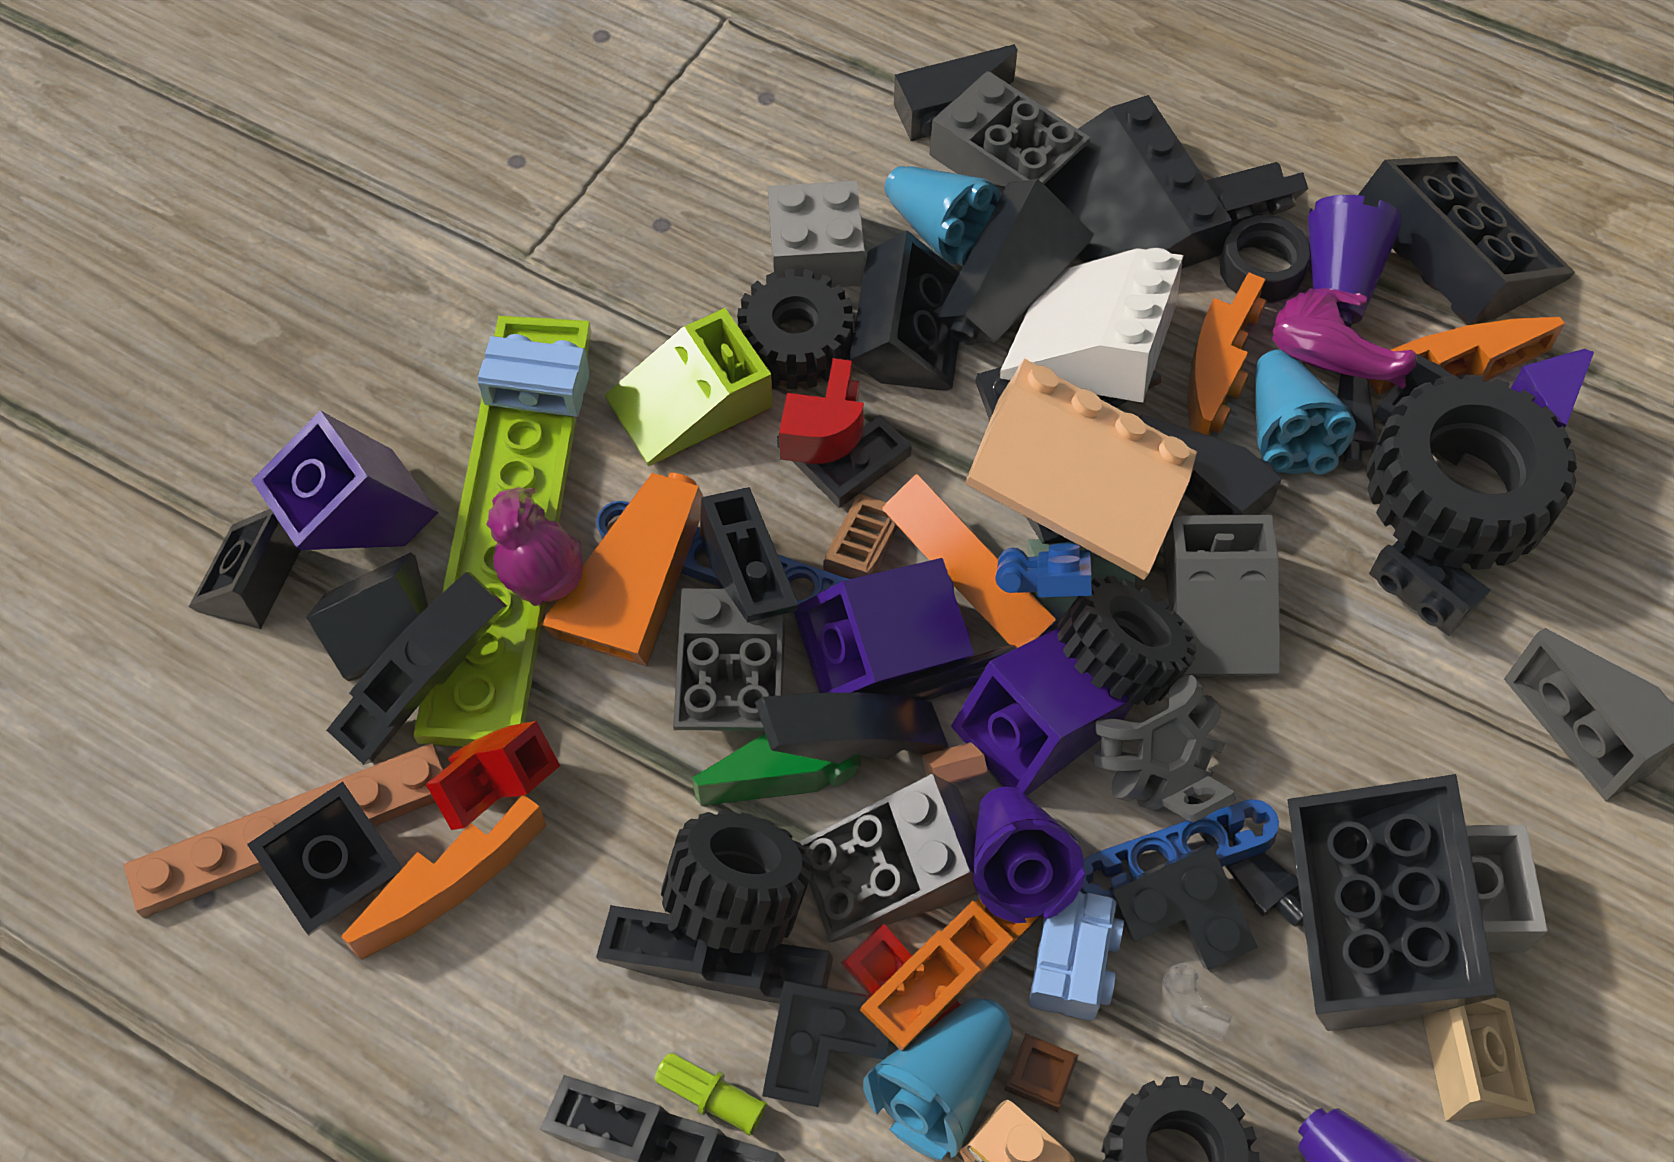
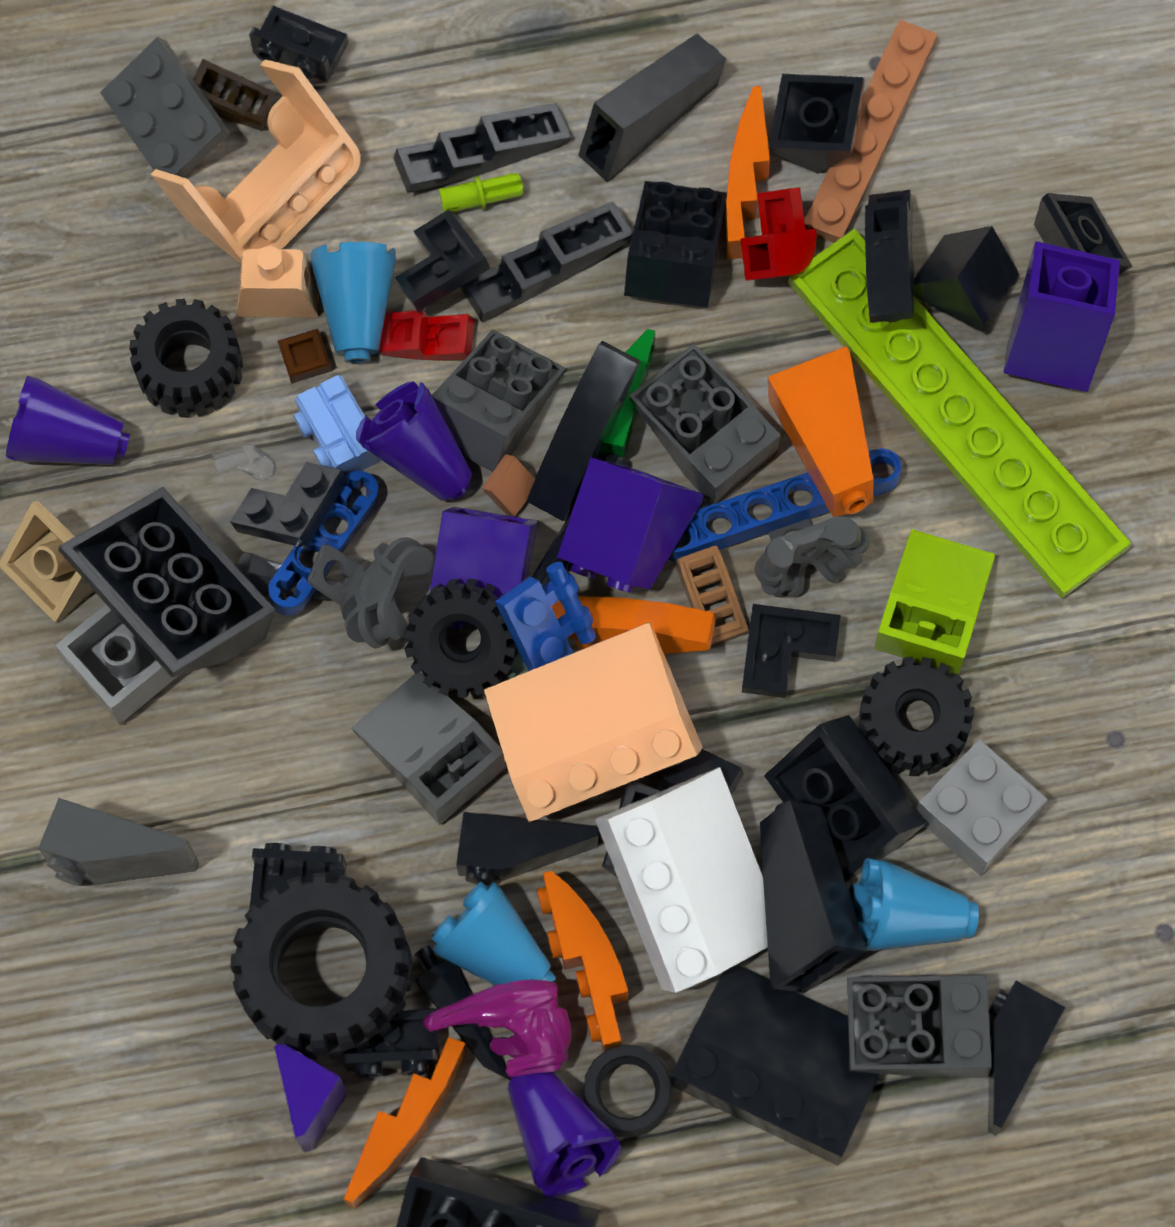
camera: 140 degrees right, 10 degrees up
(457, 1023) = (648, 105): none -> black slope
(531, 552) = (902, 362): magenta hair -> none
(534, 375) = (1042, 503): light blue brick -> none
(575, 864) = (675, 244): none -> black slope
(735, 881) = (587, 318): black tyre -> none
(744, 555) = (749, 471): black slope -> none
(779, 494) = (786, 556): none -> dark grey piece
(821, 427) = (805, 633): red brick -> none
(941, 972) = (402, 328): orange slope -> none
(1258, 191) = (686, 1142): black bracket -> none

